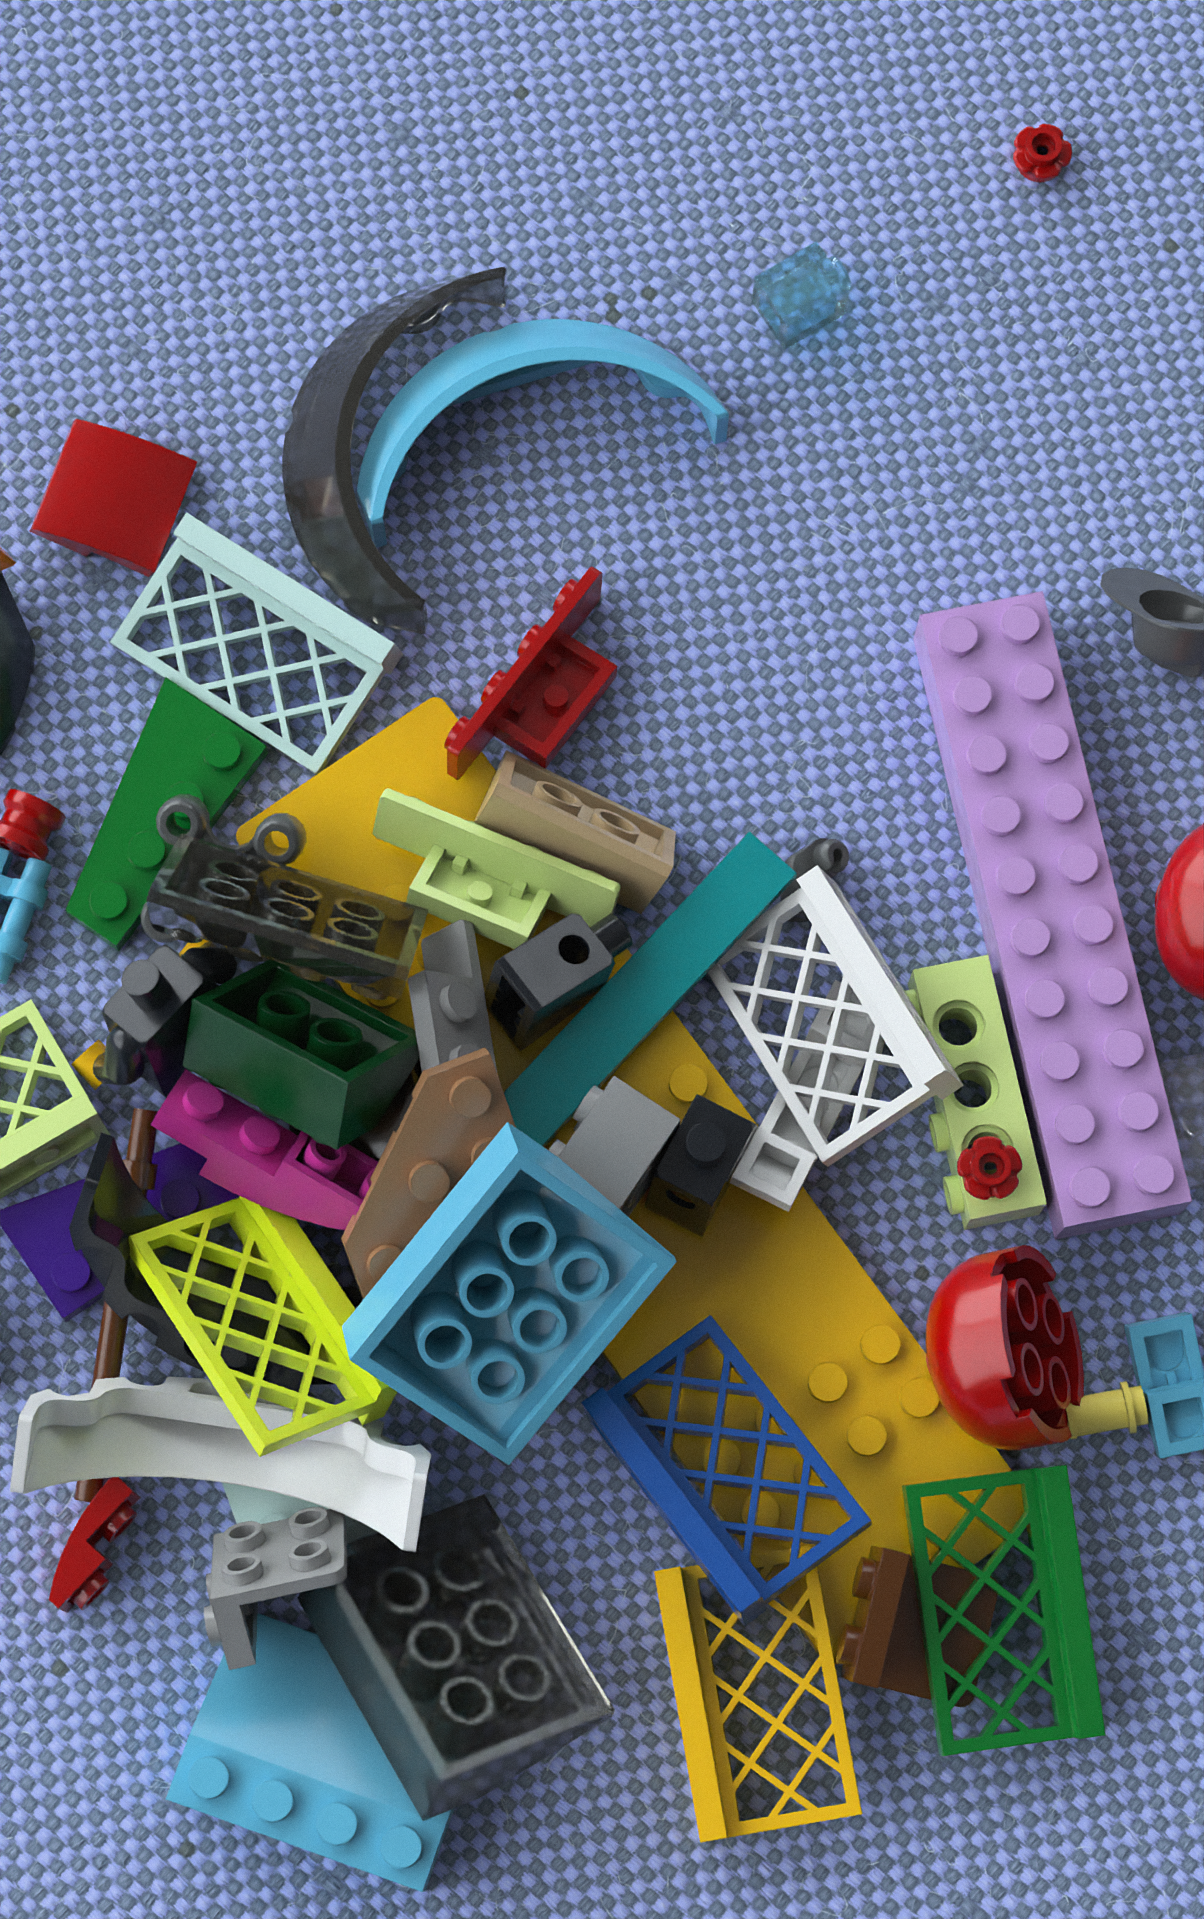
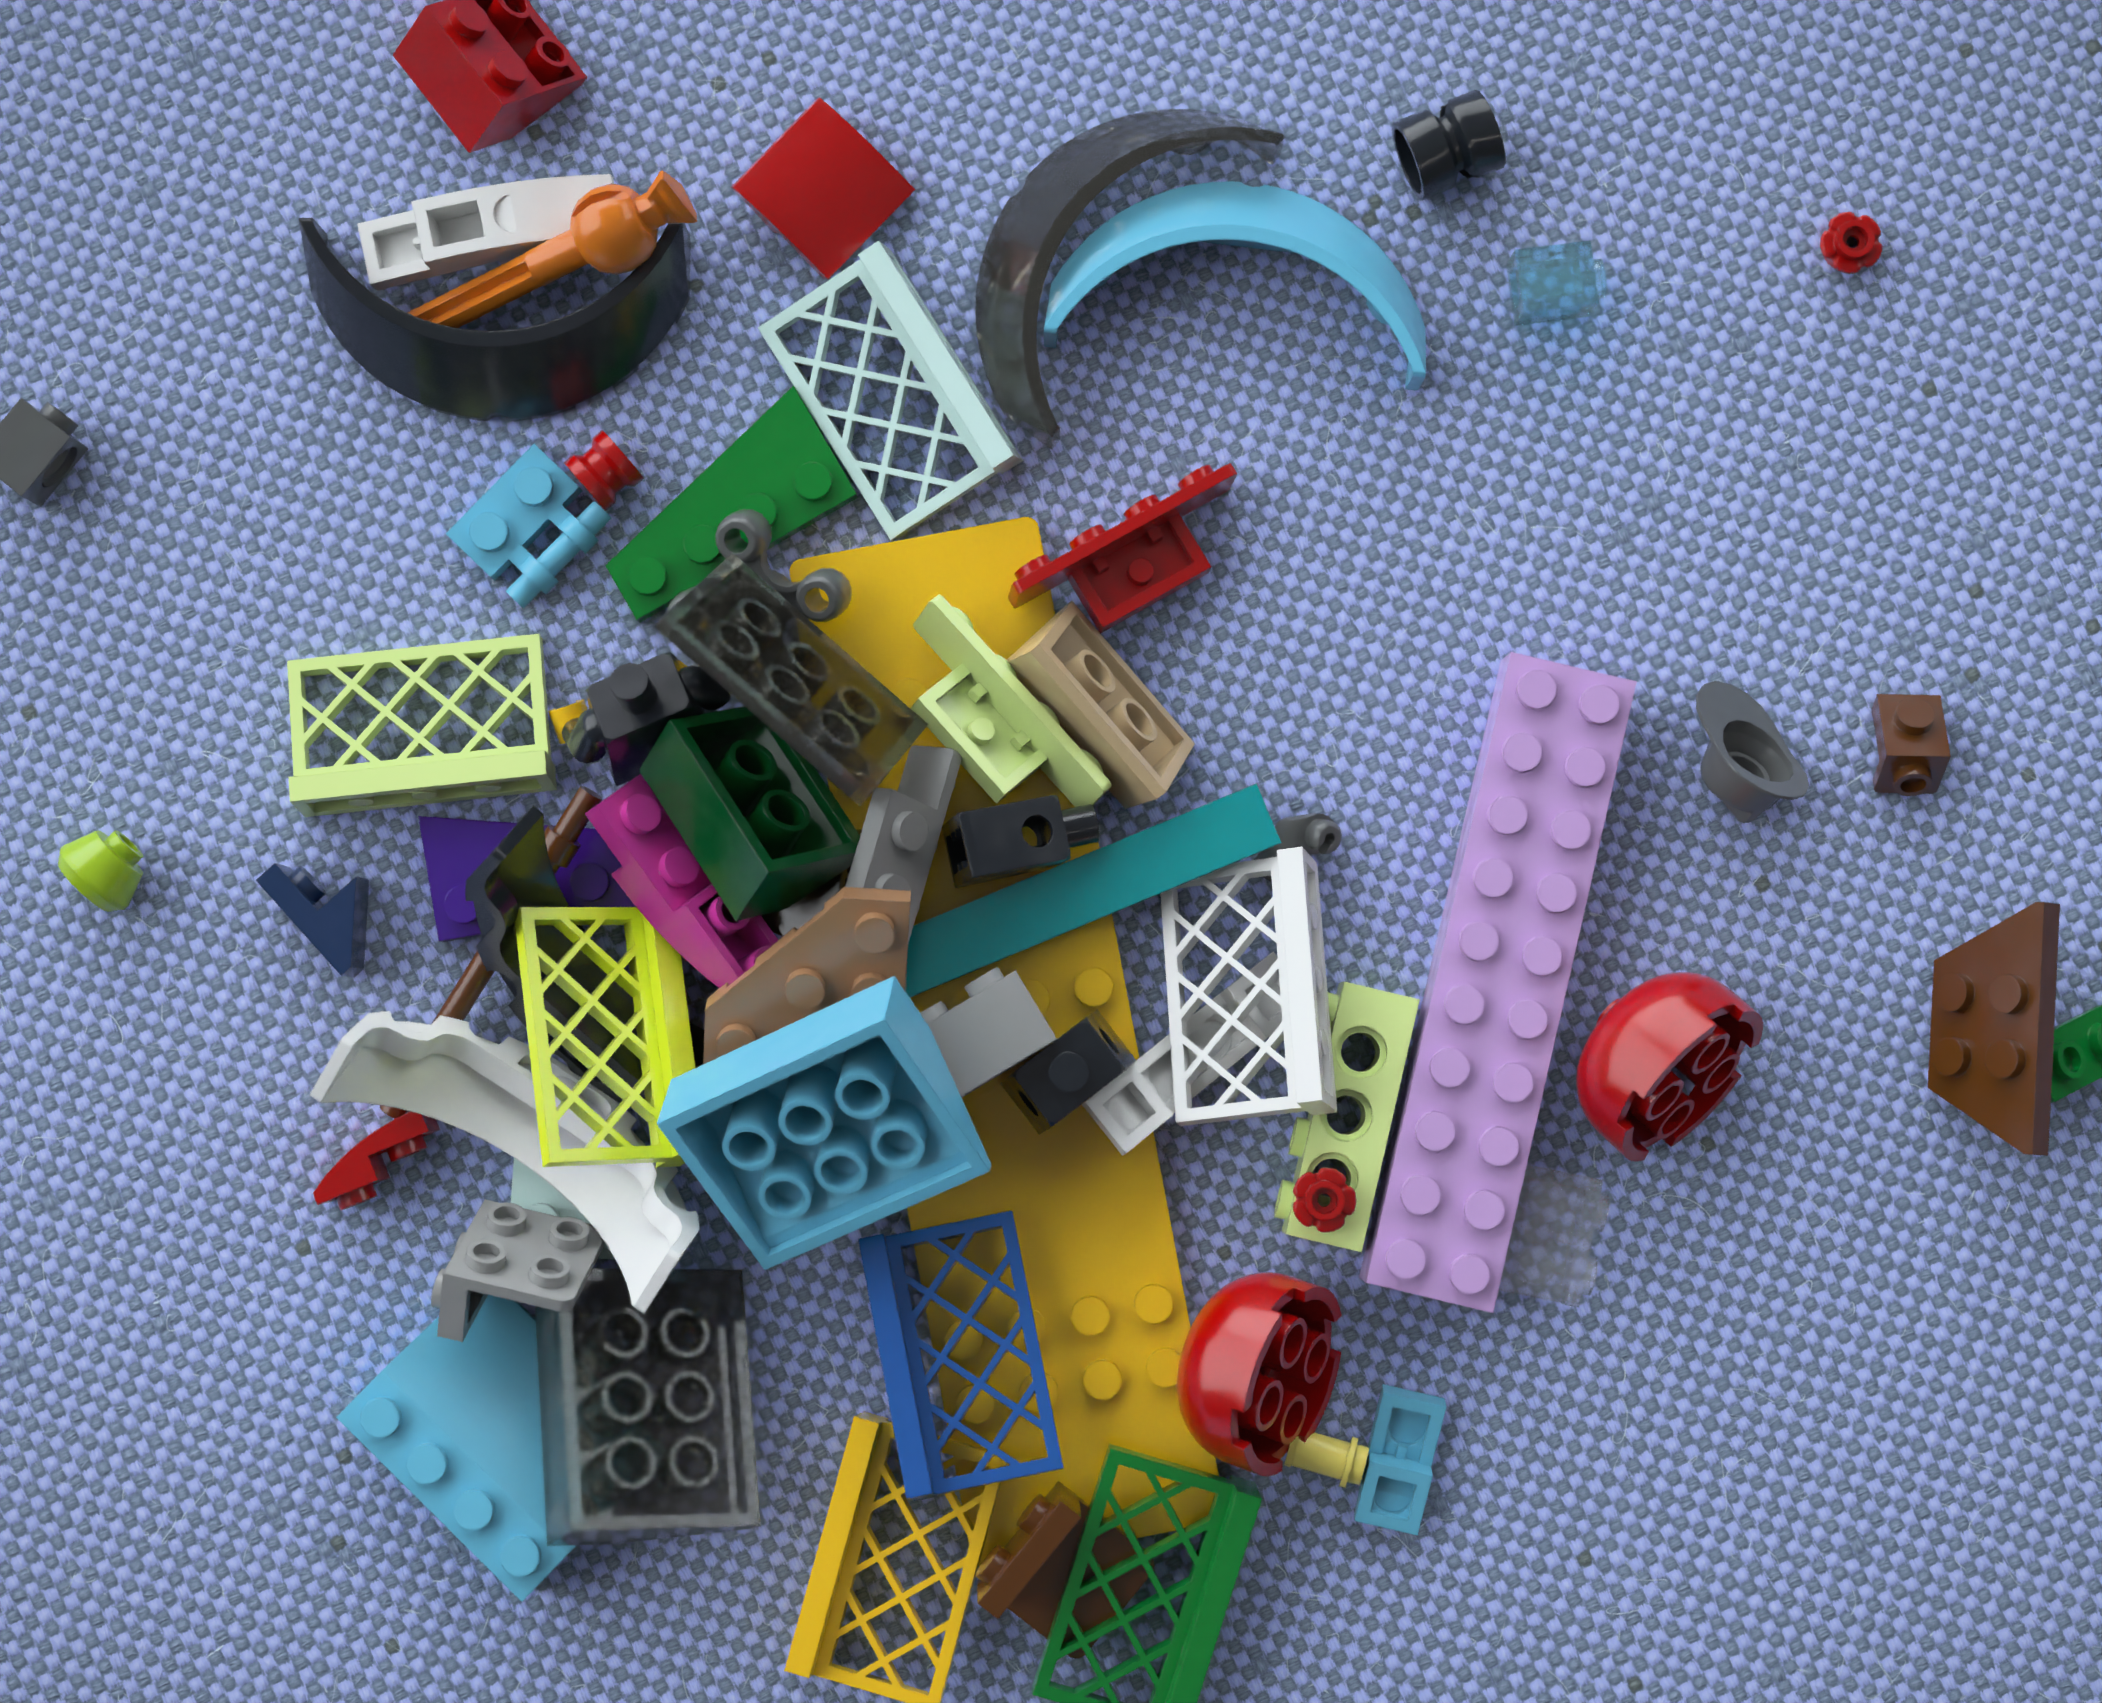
camera: 25 degrees right, 10 degrees up
(661, 210) = (1458, 141): none -> black wheel

